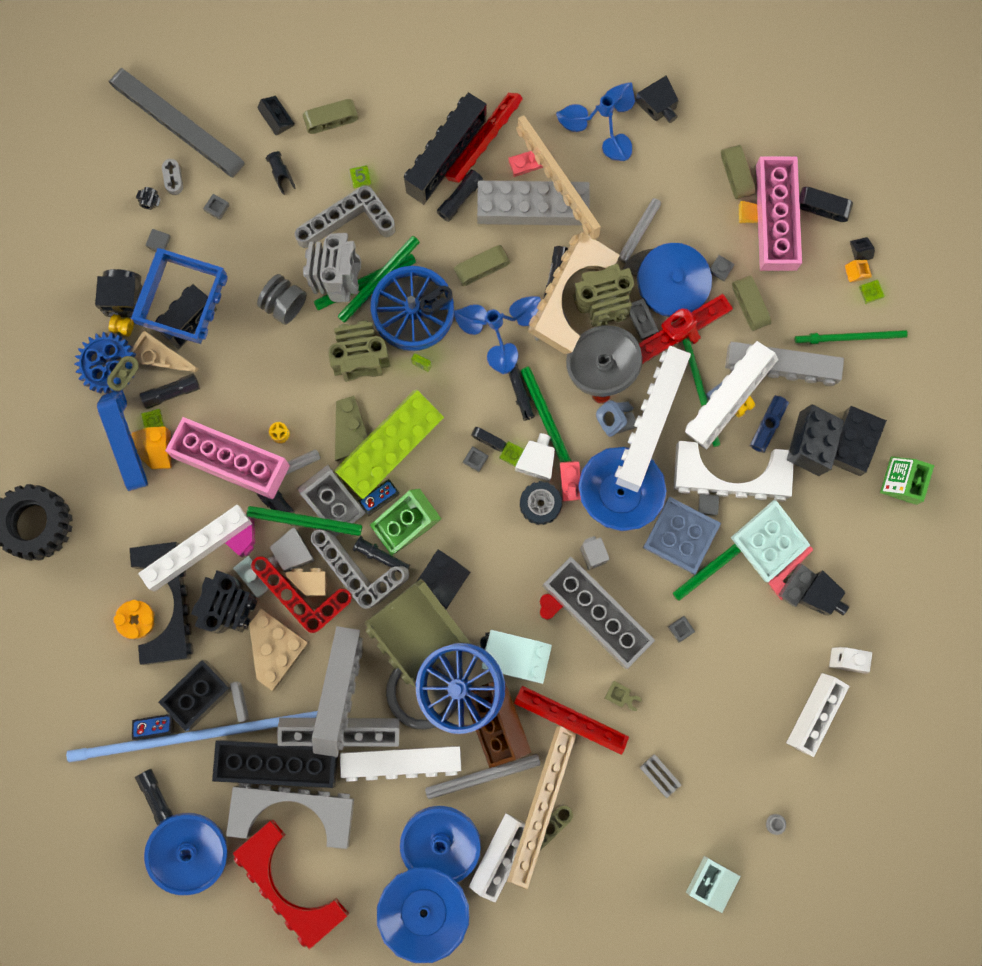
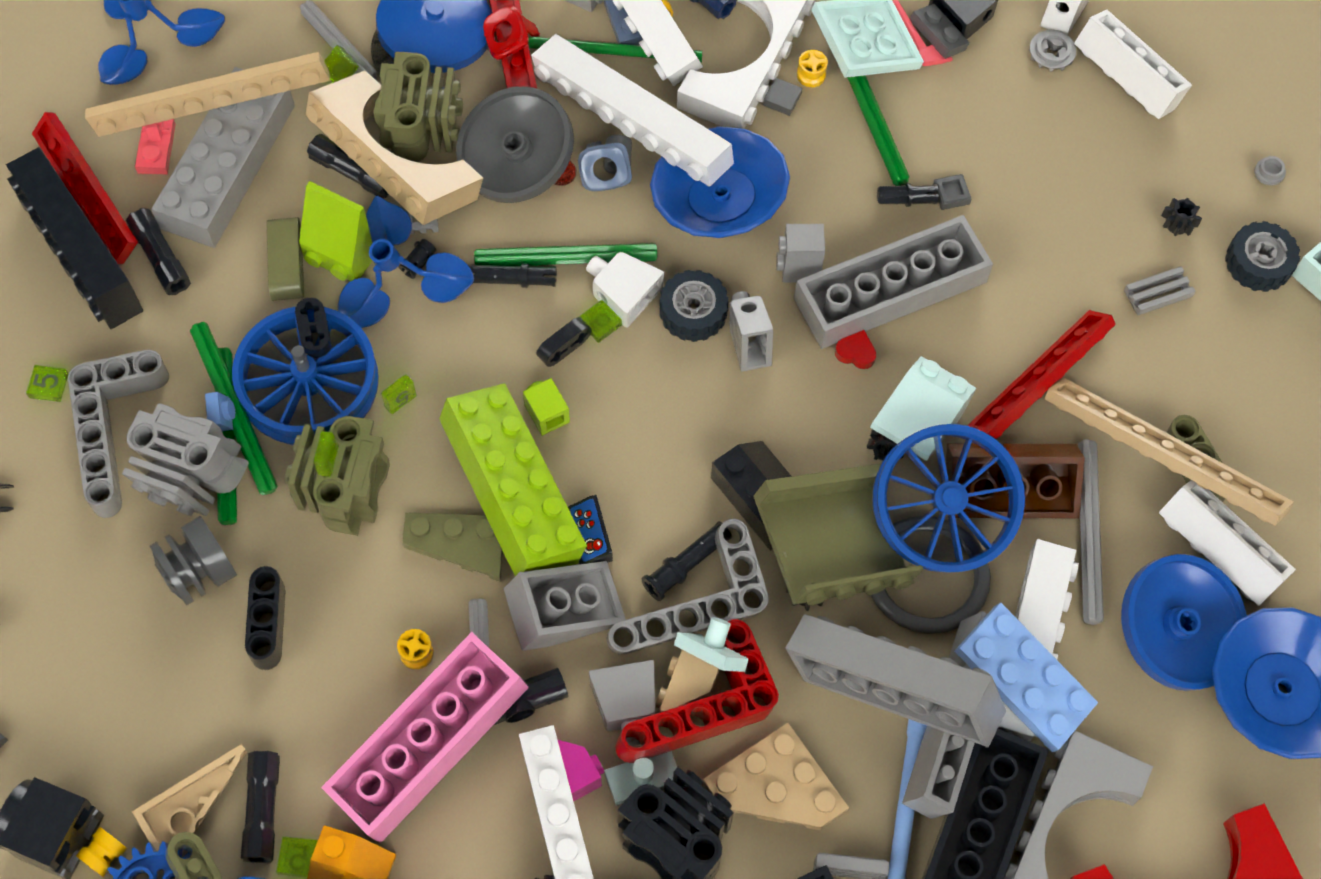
camera: 70 degrees left, 15 degrees down
(151, 284) = (65, 664): blue window -> none
(184, 314) = (142, 728): black brick -> none
(277, 350) = (258, 604): none -> black beam
(304, 520) = (584, 650): green axle -> none
(325, 587) = (711, 646): none -> light aqua tile
(354, 341) = (326, 454): none -> clear neon green tile
(367, 273) = (220, 410): none -> medium blue plate
(370, 763) = (1027, 677): none -> light blue plate
(405, 521) = (646, 505): bright green slope -> none
(444, 444) = (546, 406): none -> lime brick
(475, 459) = (586, 374): dark grey tile -> none
(498, 287) = (334, 233): none -> lime slope
(511, 337) = (418, 256): none -> black pin
(534, 540) = (750, 319): none -> light grey torso
(570, 480) = (675, 251): coral hinge -> none
(619, 695) = (1026, 300): olive plate -> none
(621, 238) = (340, 64): none -> clear neon green tile
(642, 319) = (477, 80): dark grey plate -> none
(666, 603) = (907, 194): none -> black axle
(682, 535) = (819, 141): sand blue plate -> none
(720, 836) = (1273, 266): none -> black wheel
(722, 775) = (1181, 216): none -> black gear
(738, 513) = (817, 62): none -> yellow wheel
(821, 661) = (1056, 42): none -> light grey gear

